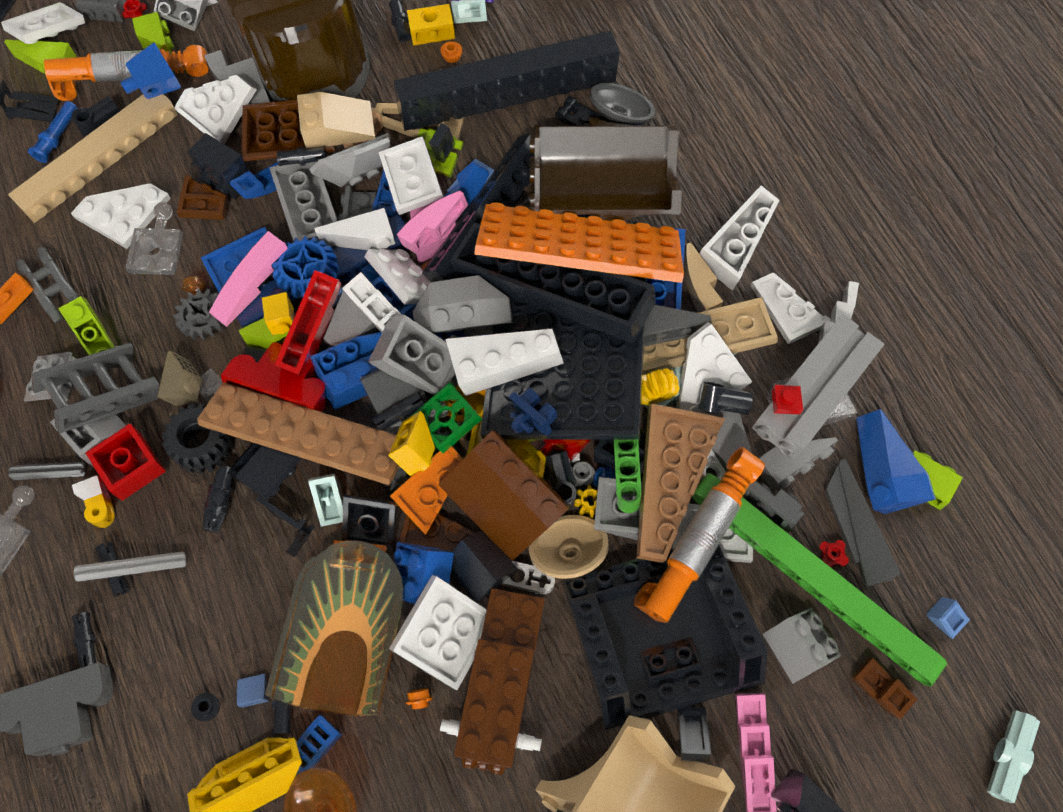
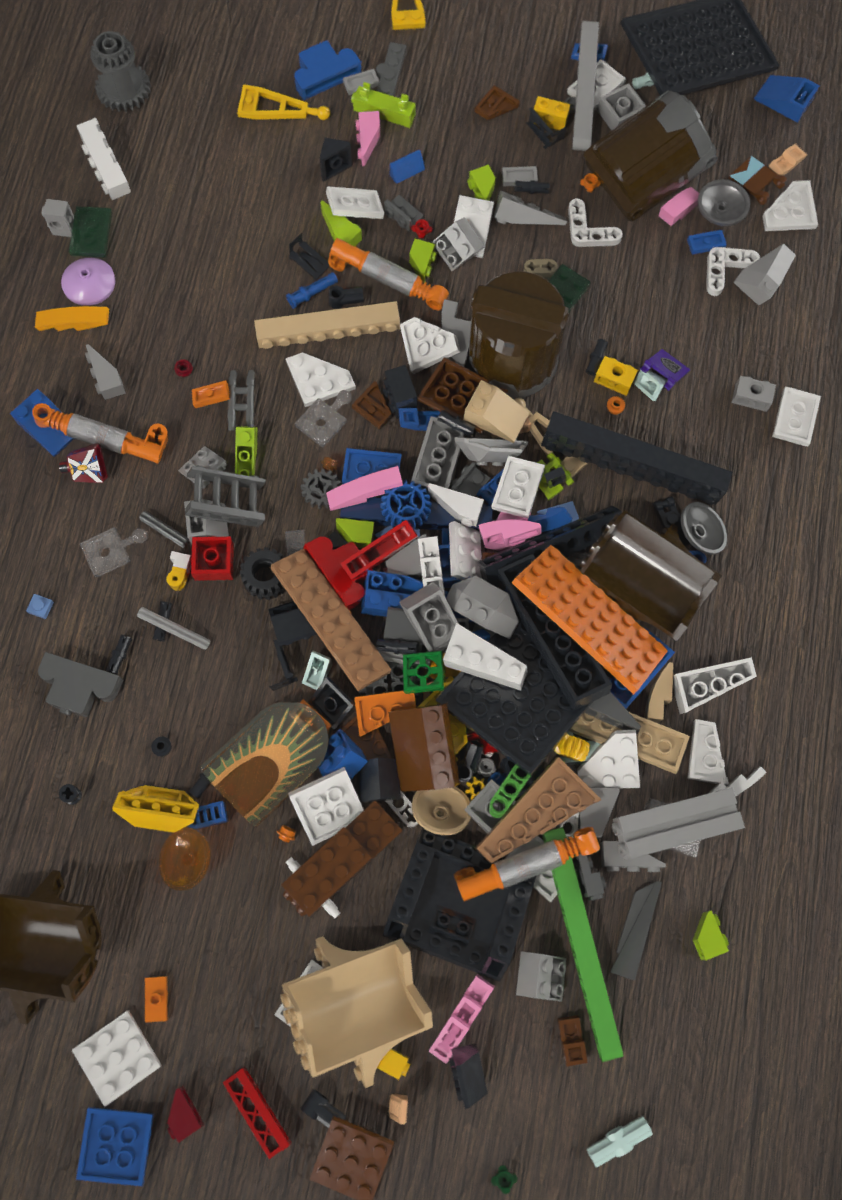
camera: 30 degrees right, 5 degrees up
(150, 74) = (398, 293): blue torso -> none
(179, 381) = (279, 525): dark tan slope -> none
(217, 501) = (250, 622): black hinge -> none
(252, 691) = (194, 756): medium blue slope -> none
(278, 313) = (368, 526): yellow brick -> none
(413, 445) = (390, 675): yellow slope -> none
(524, 405) = (478, 718): dark blue hips -> none
(693, 734) = (432, 978): black tile -> none
(717, 397) = (606, 782): black piece -> none
(787, 399) = (645, 819): red plate -> none
(837, 547) = (608, 942): red plate -> none
(890, 469) = (687, 908): blue wedge -> none
(948, 616) = (649, 1029): medium blue slope -> none

